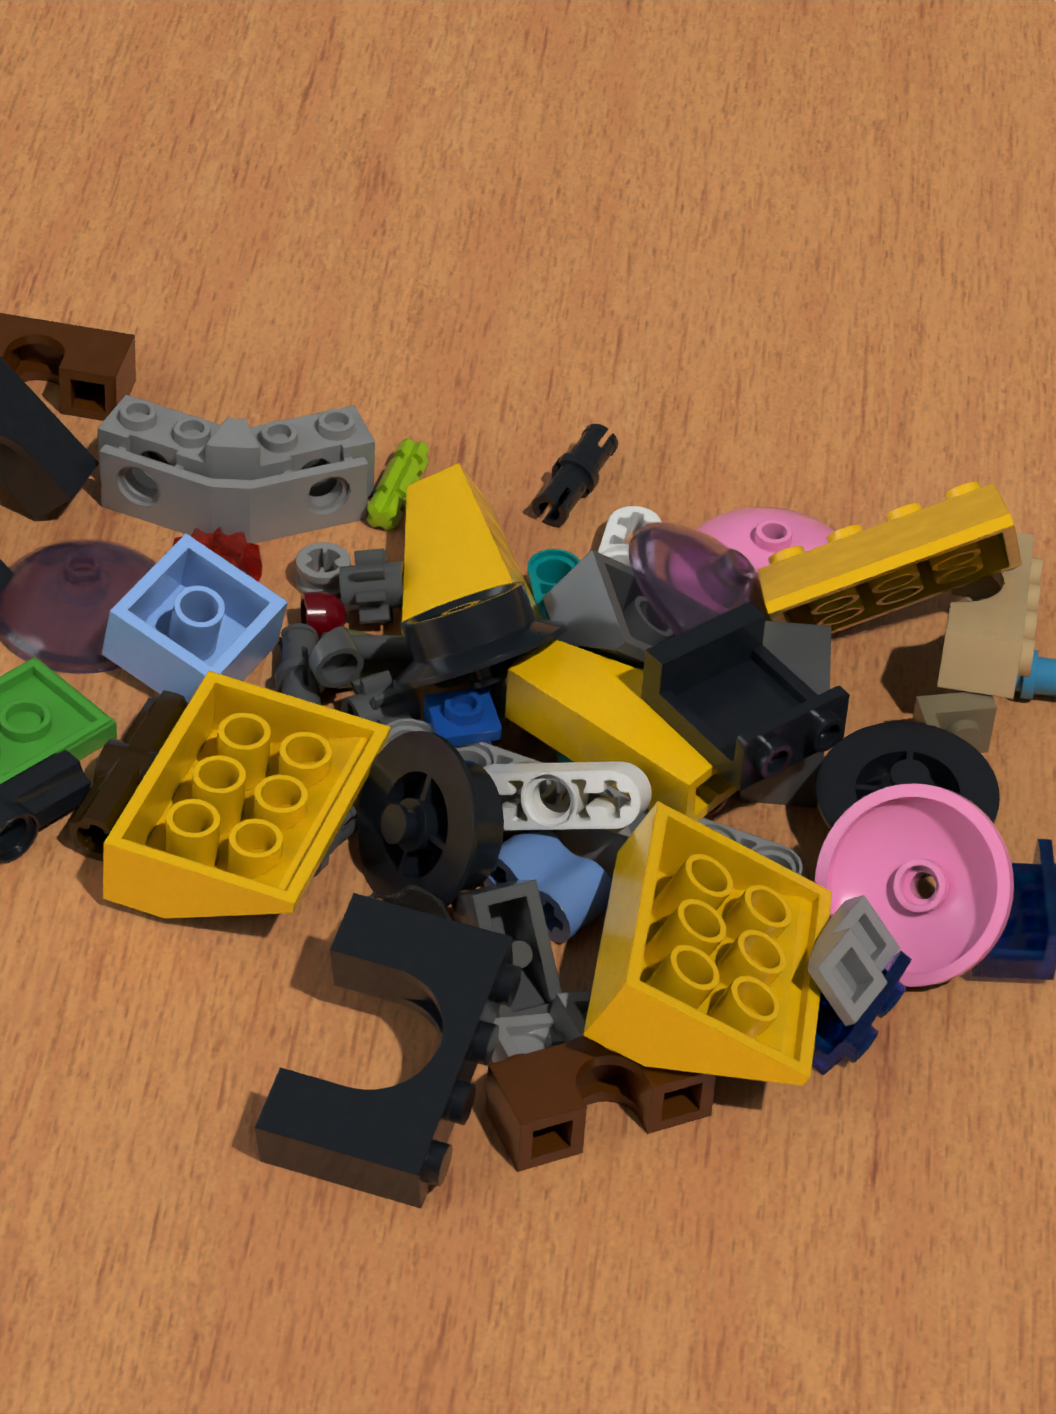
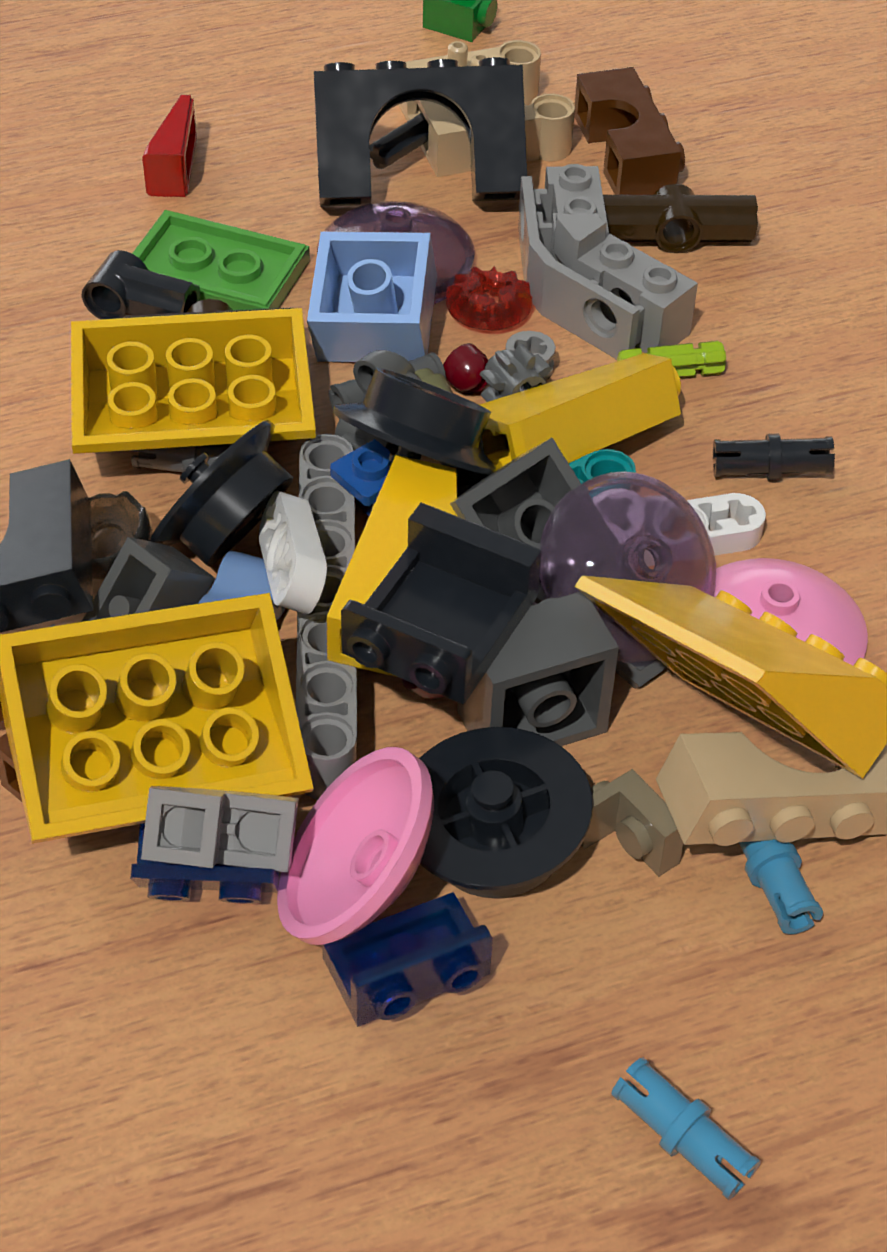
camera: 65 degrees right, 5 degrees up
(212, 380) = (680, 218): none -> dark brown piece

